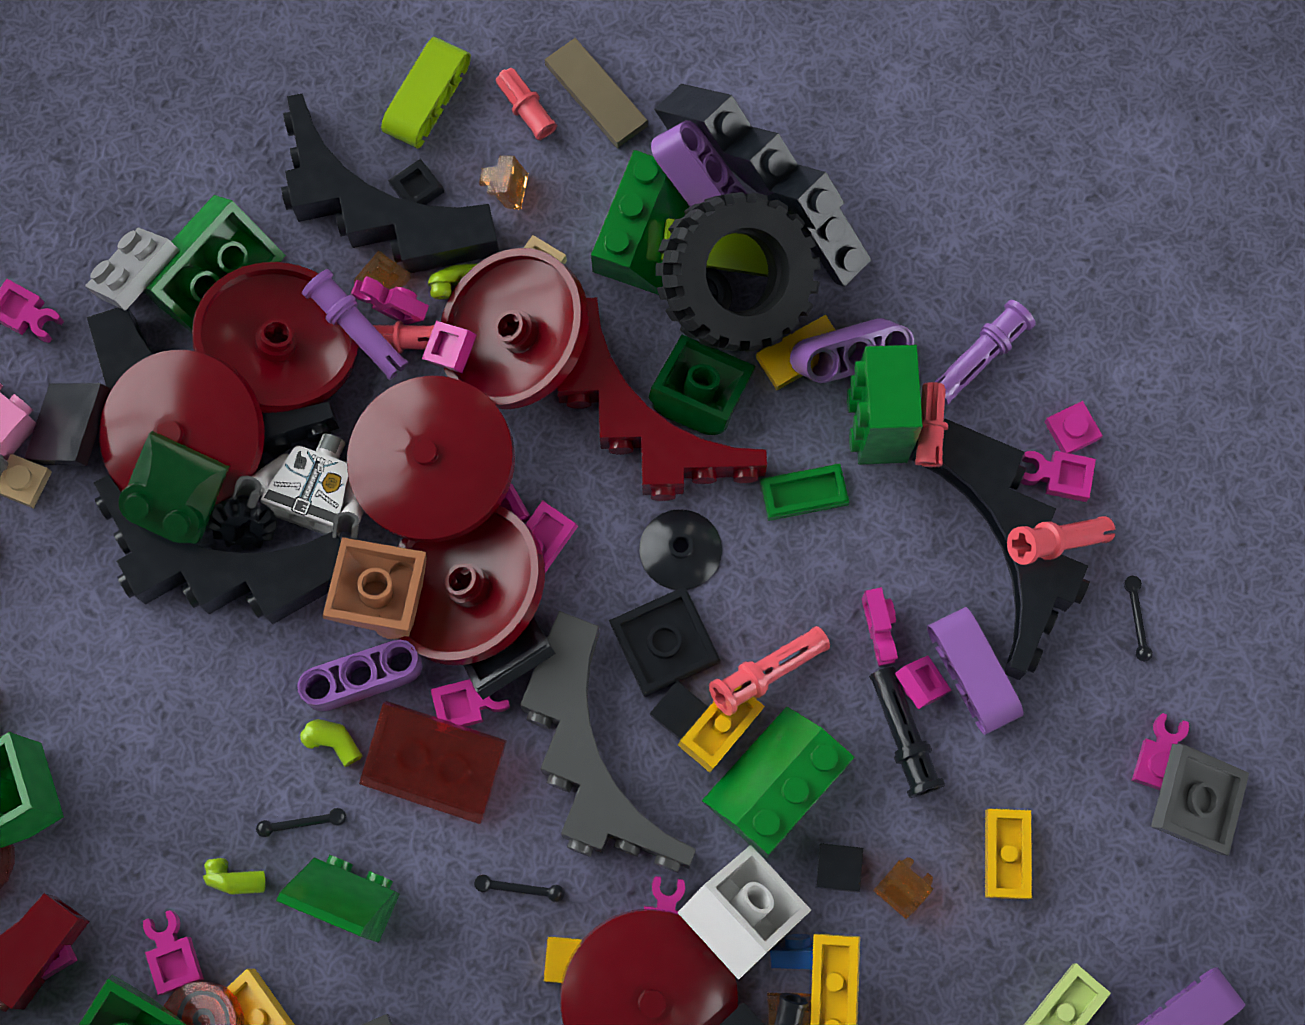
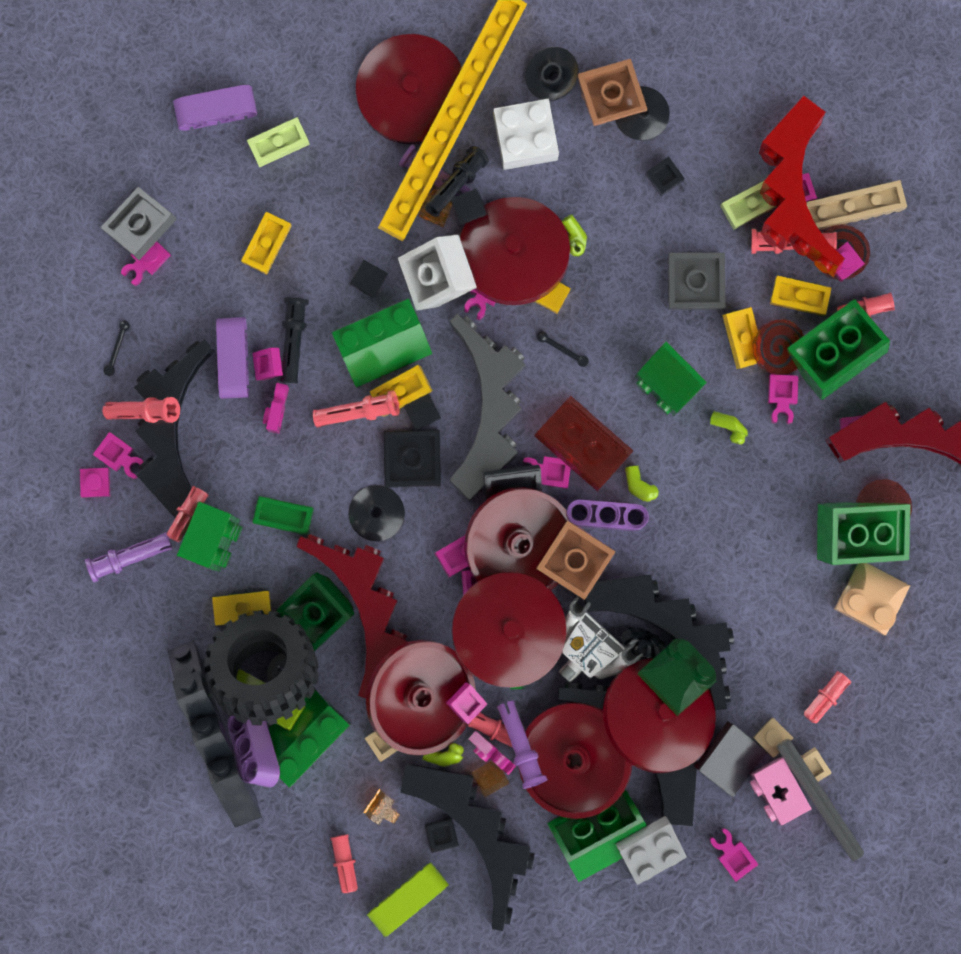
camera: 160 degrees left, 10 degrees up
(336, 817) = (654, 438): black hinge -> none
(596, 93) = (293, 851): dark tan tile -> none
(793, 952) = (416, 237): blue plate -> none
(834, 348) = (211, 589): medium lavender beam -> none
(904, 888) = (337, 250): clear orange tile -> none

